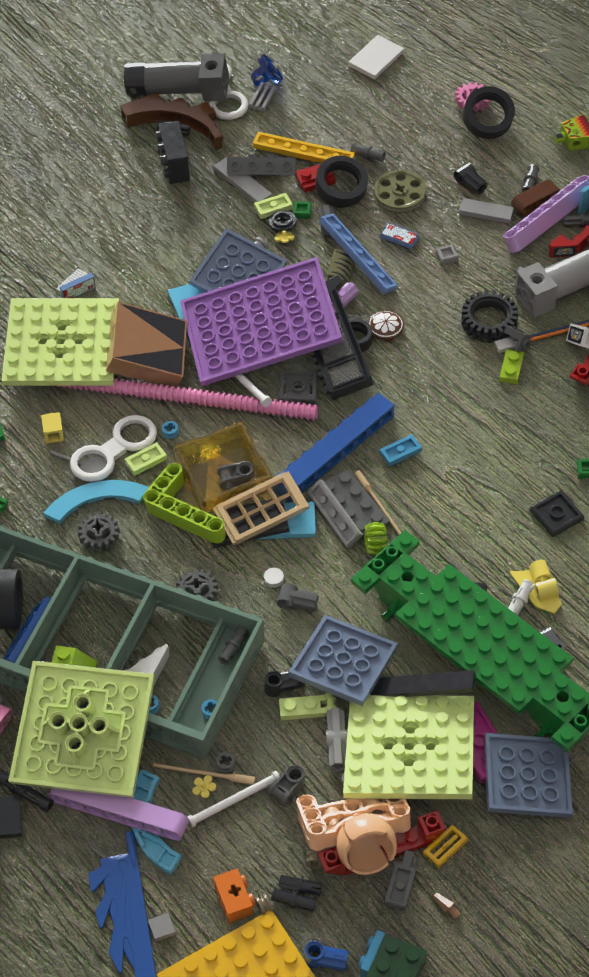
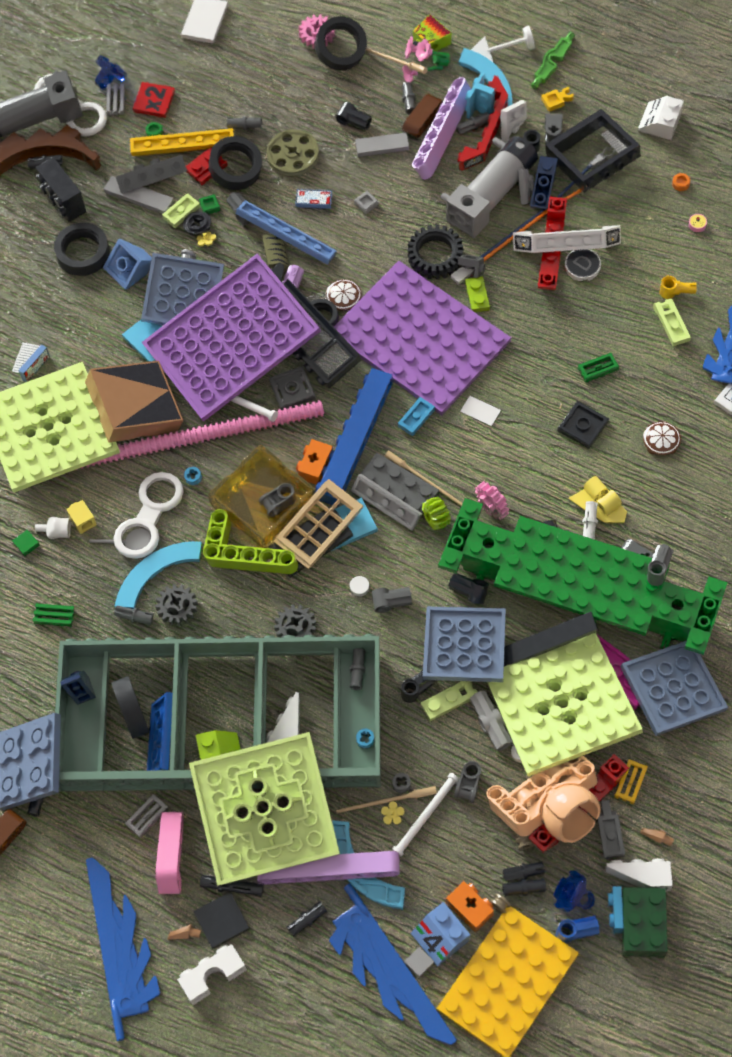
camera: 20 degrees left, 10 degrees up
(26, 430) = (55, 528): none -> white piece
(56, 527) = (134, 615): none -> dark grey axle
(76, 847) = (306, 919): none -> black pin
(145, 459) = (184, 514): yellowish green plate -> none
(163, 193) = (76, 231): none -> black tyre
(193, 909) = (440, 934): none -> medium blue slope
(201, 232) = (127, 263): none -> medium blue slope
(284, 131) = (154, 129): none -> green tile
(286, 452) = (315, 459): none -> orange brick
(296, 108) = (153, 99): none -> red tile
(335, 920) = (570, 892): none -> clear blue tile
(378, 617) = (472, 588): none -> black piece
(414, 931) = (643, 874): none -> white slope
(432, 545) = (493, 501): none -> bright pink gear
(440, 385) = (421, 337): none -> medium lavender plate
(464, 467) = (480, 410): none -> white sticker
(543, 150) = (412, 66): none -> tan piece
(557, 653) = (659, 564): none -> dark grey piece
(576, 155) = (422, 52): none -> bright pink plant

